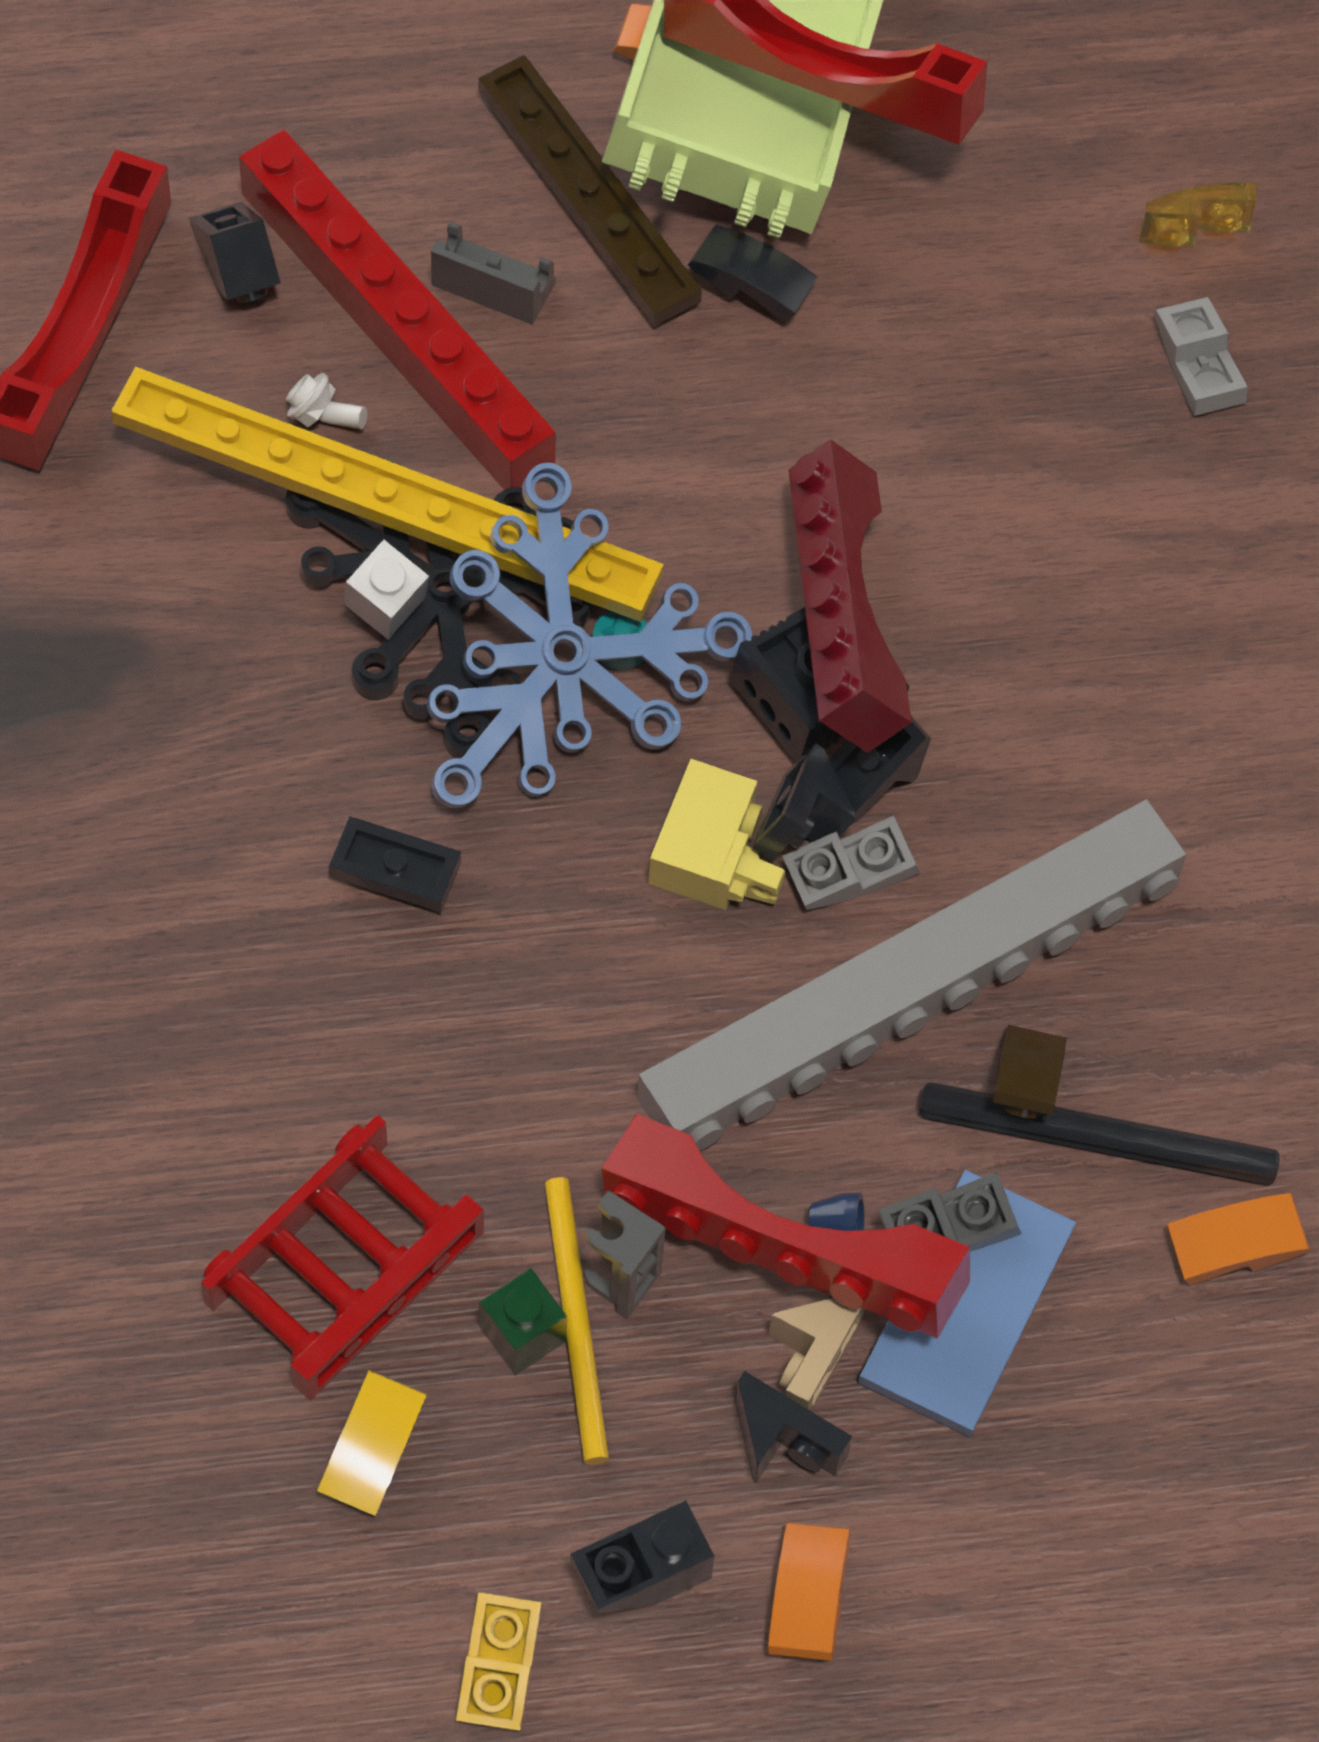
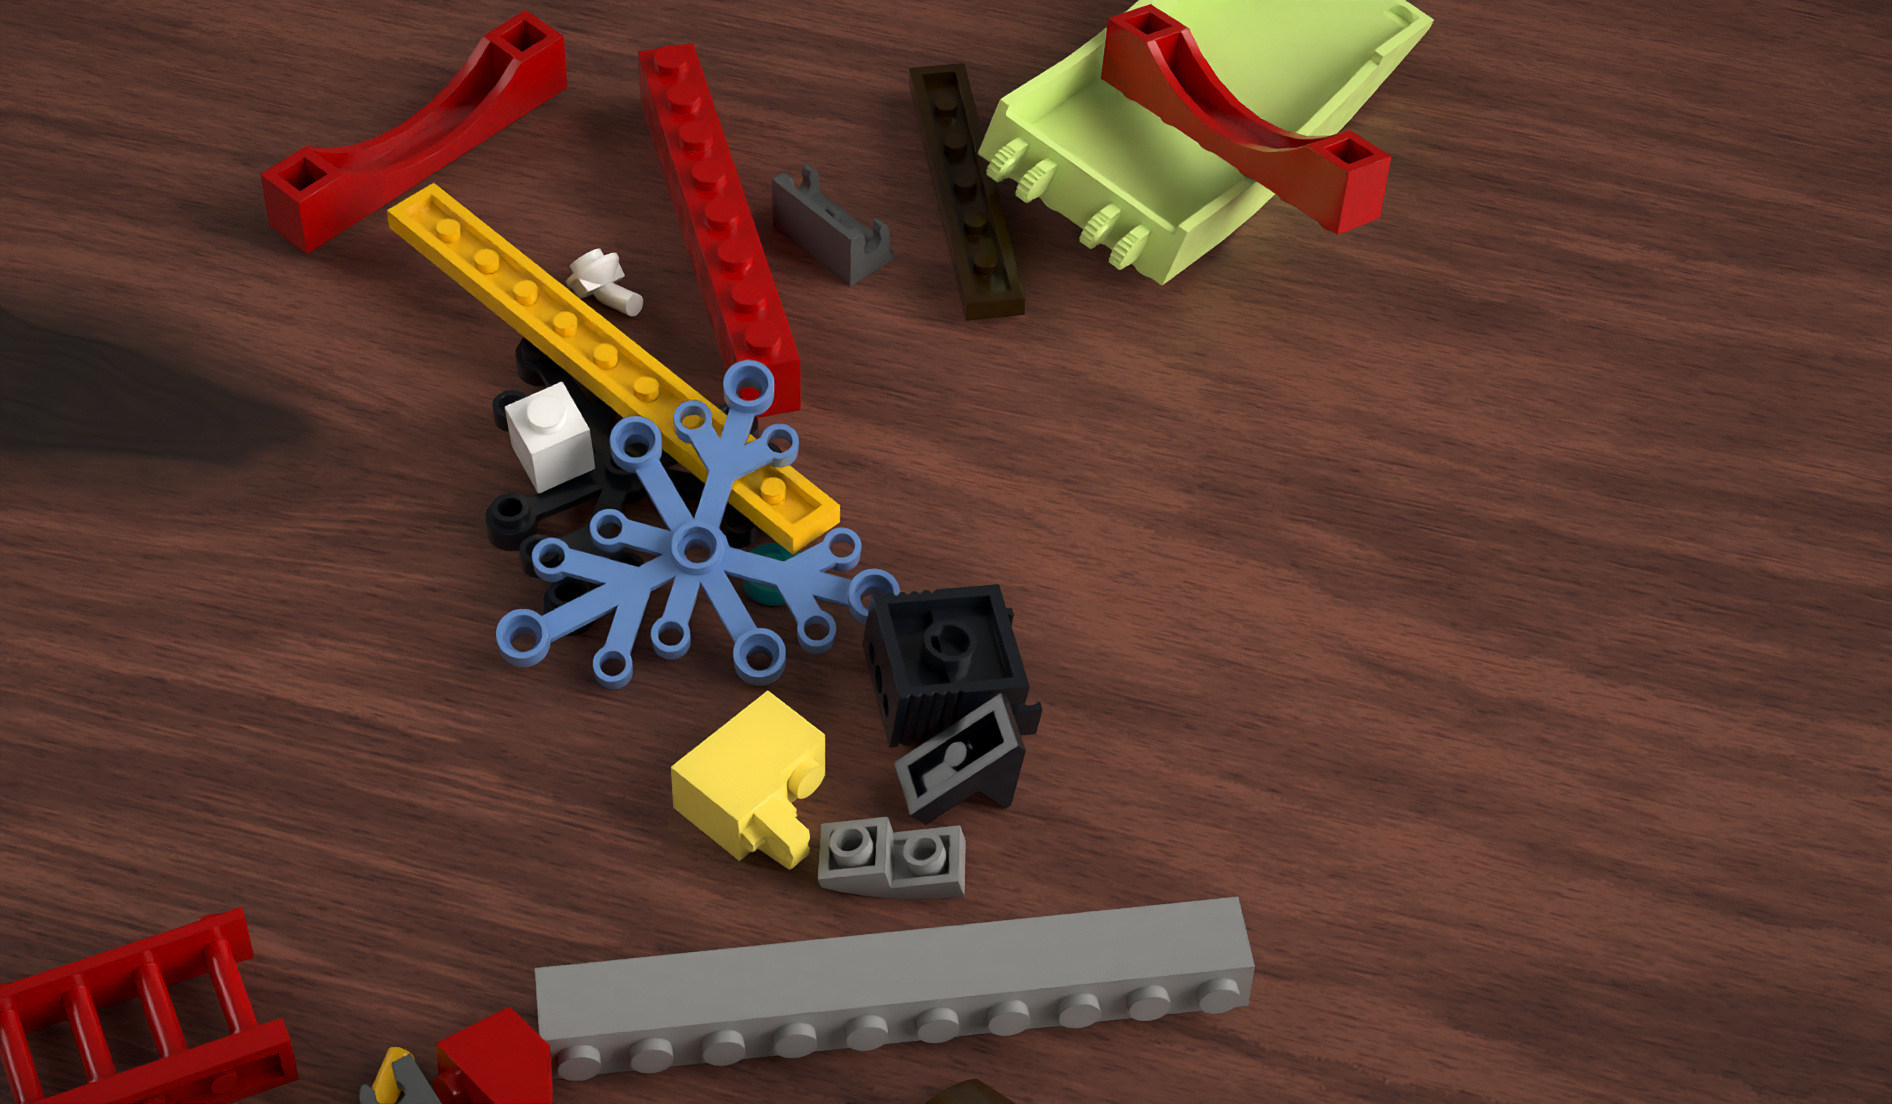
camera: 25 degrees right, 15 degrees down
(236, 251) = (596, 136): black slope -> none
(395, 864) = (421, 693): black plate -> none
(745, 263) = (1092, 300): black slope -> none
(806, 805) = (870, 778): black slope -> none
(853, 671) = (967, 652): dark red arch -> none
(1177, 216) = (1560, 384): clear yellow slope -> none
(1199, 356) = (1519, 519): light grey slope -> none

